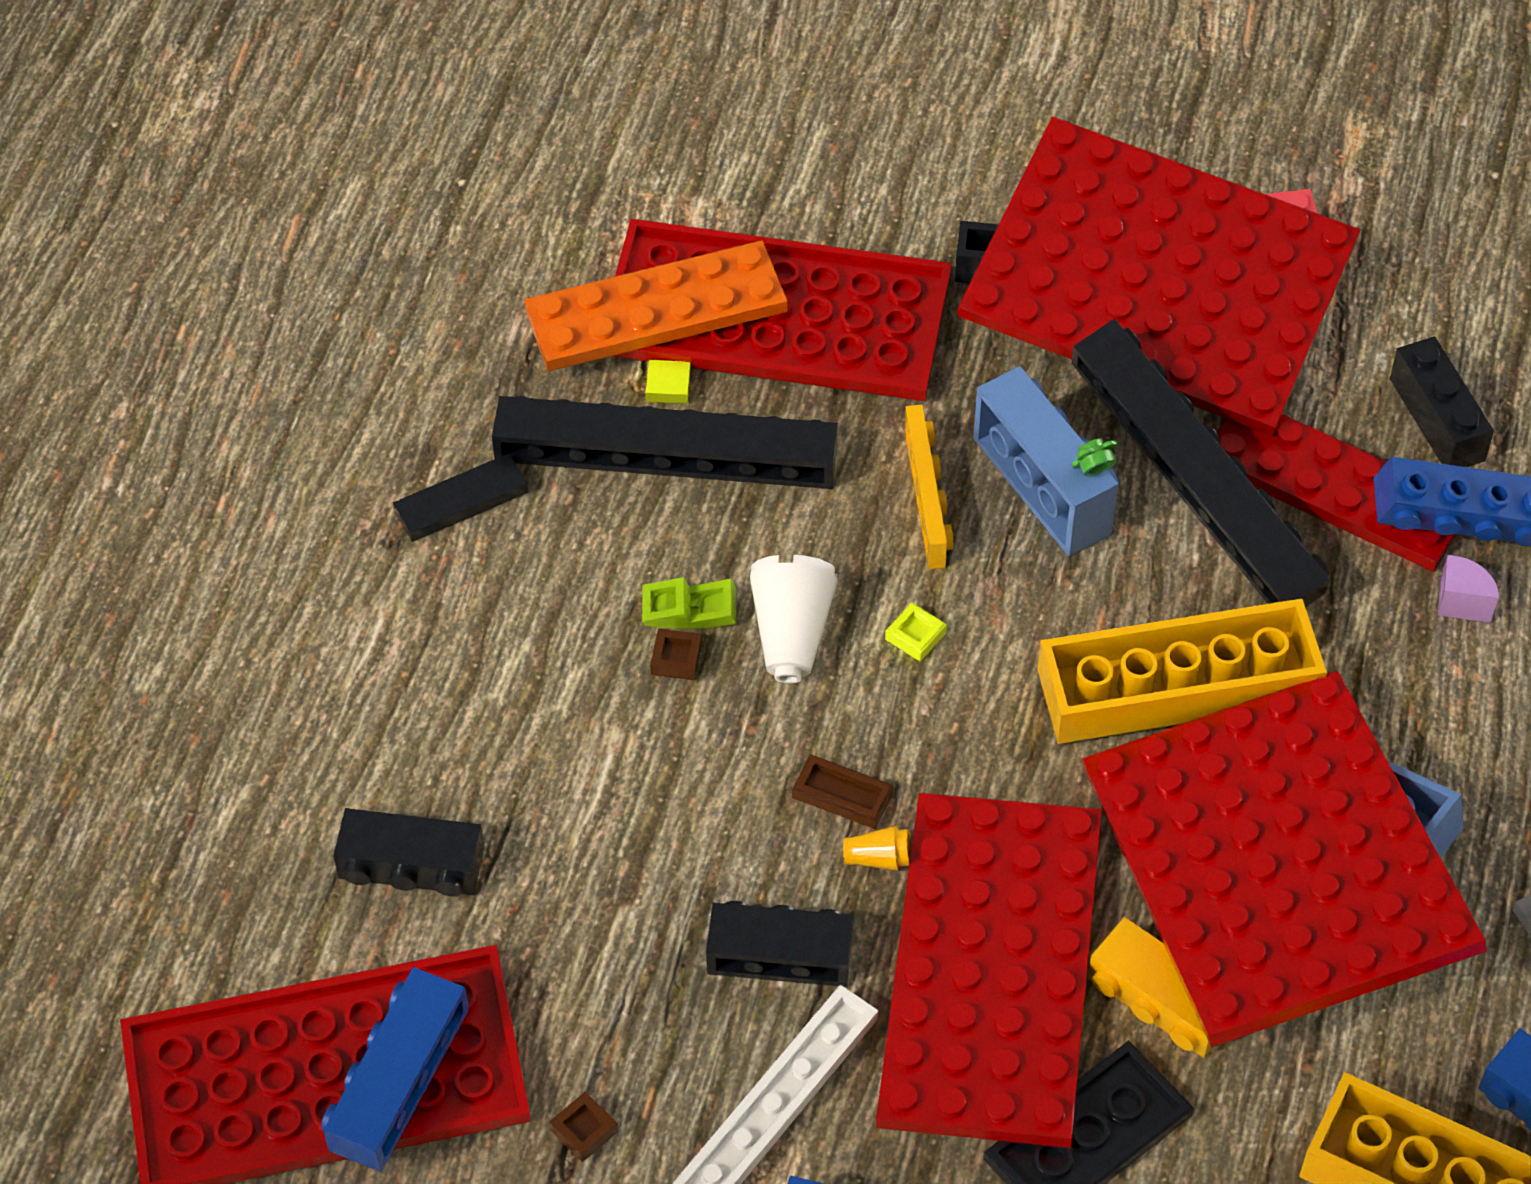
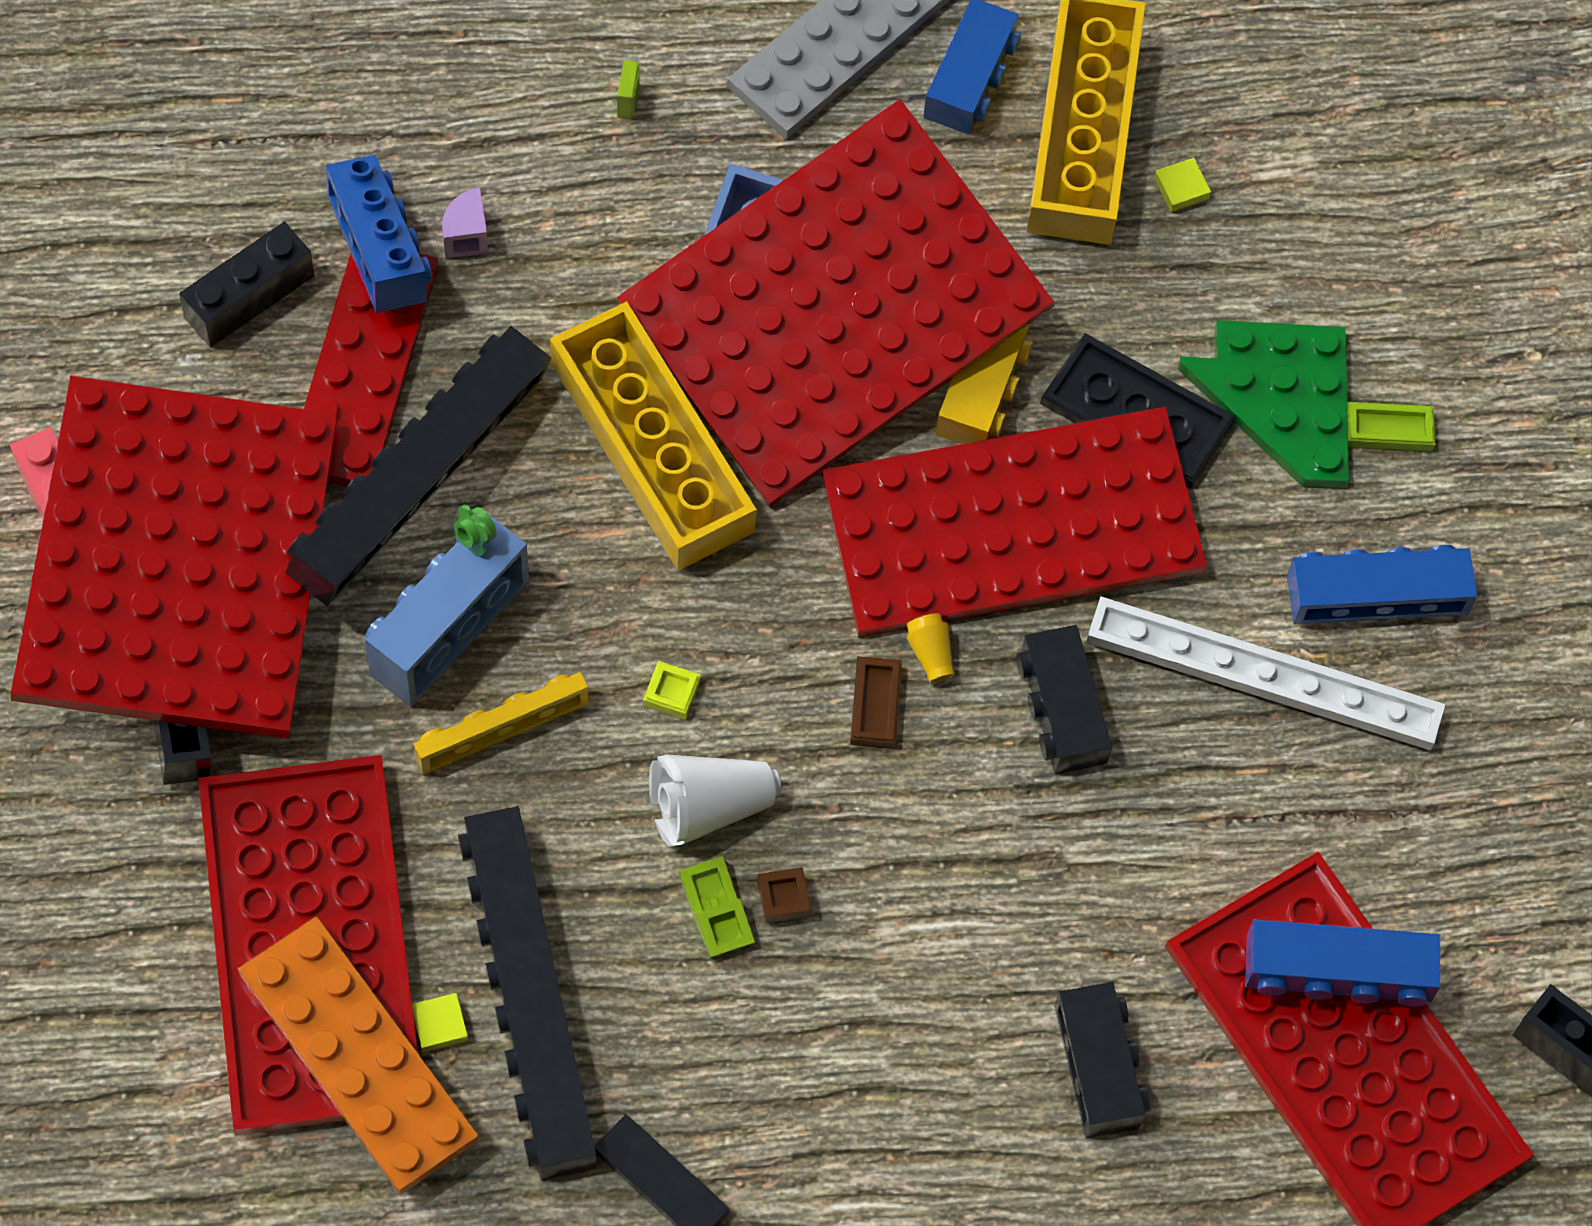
camera: 115 degrees left, 10 degrees up
(583, 1126) = (1306, 807): reddish brown plate -> none

